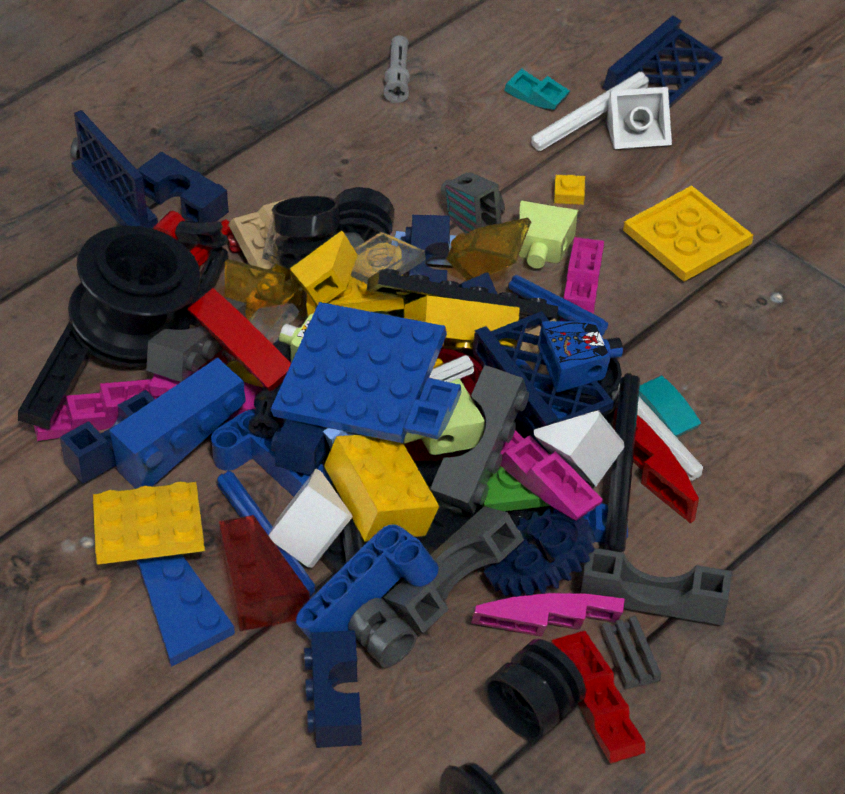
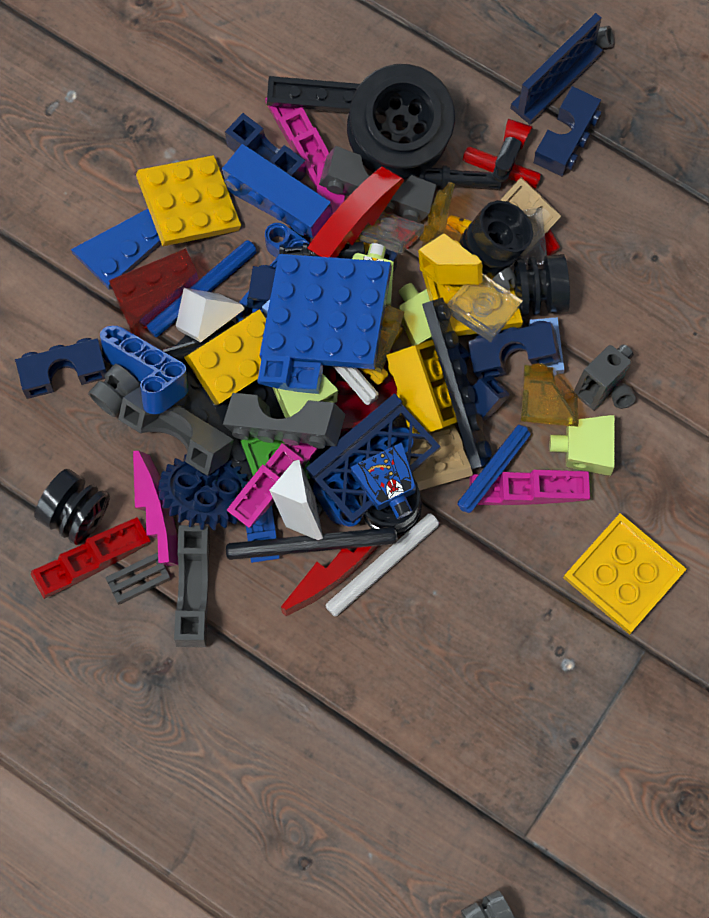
camera: 80 degrees right, 25 degrees up
(569, 189) = (662, 460): yellow plate -> none
(669, 406) = (400, 577): teal slope -> none

